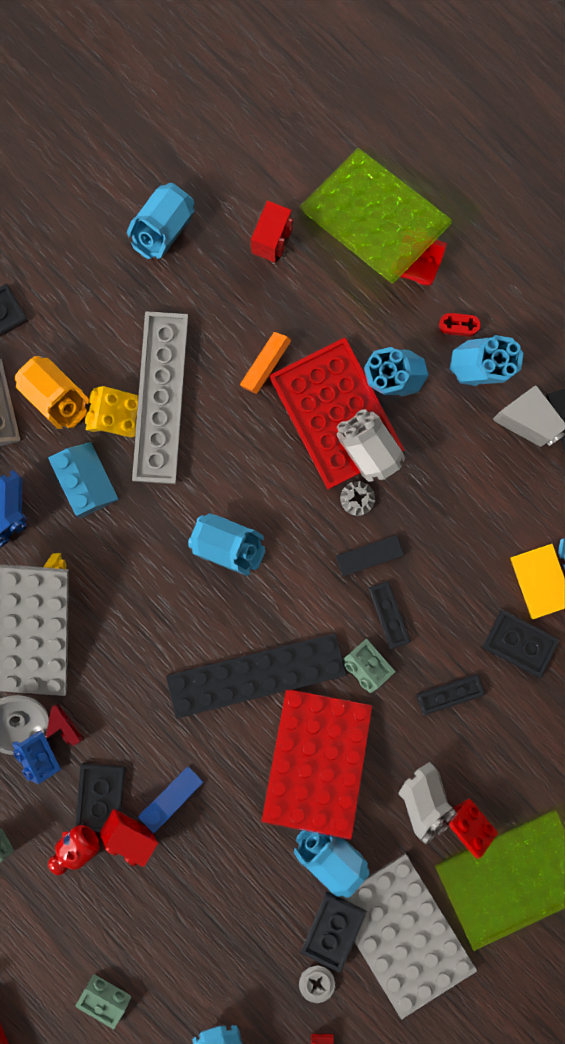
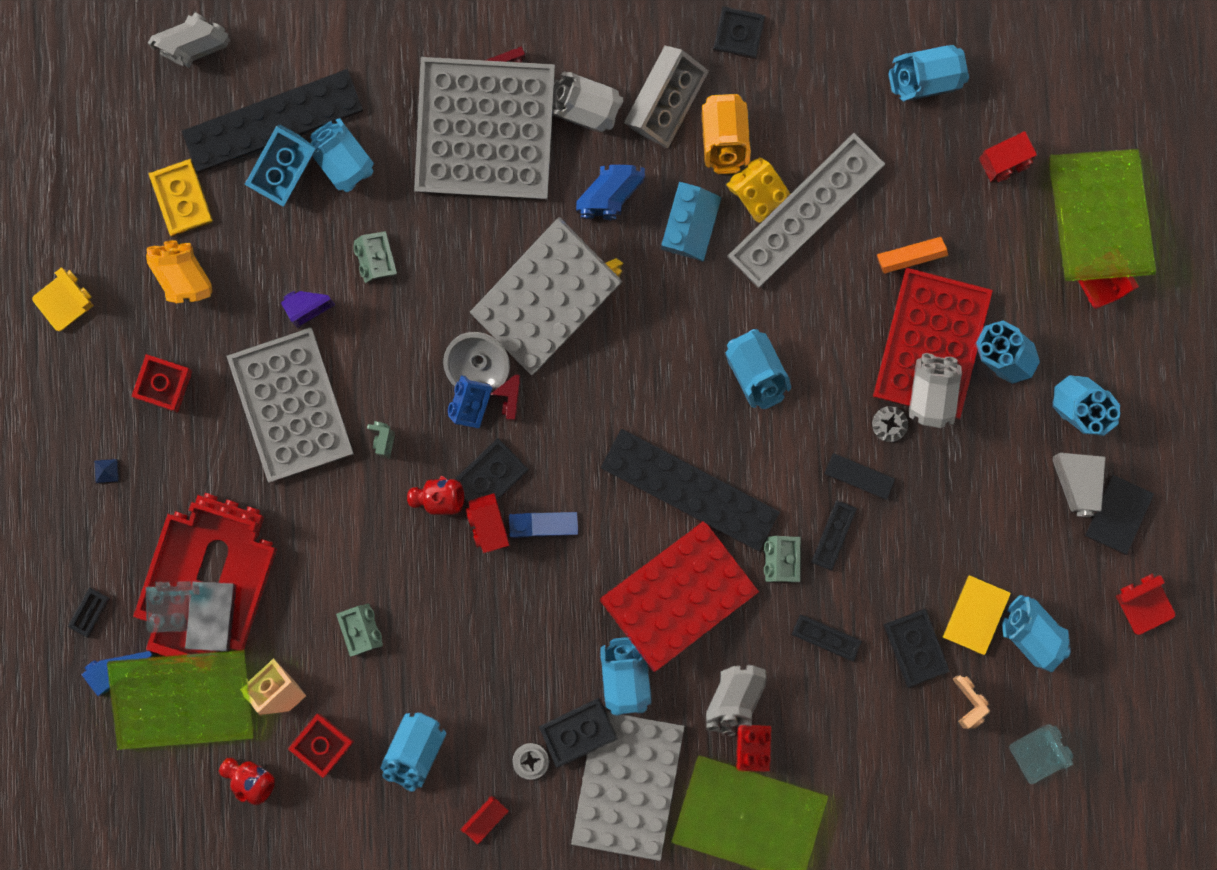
camera: 45 degrees right, 0 degrees up
(458, 329) = (1096, 355): red beam -> none

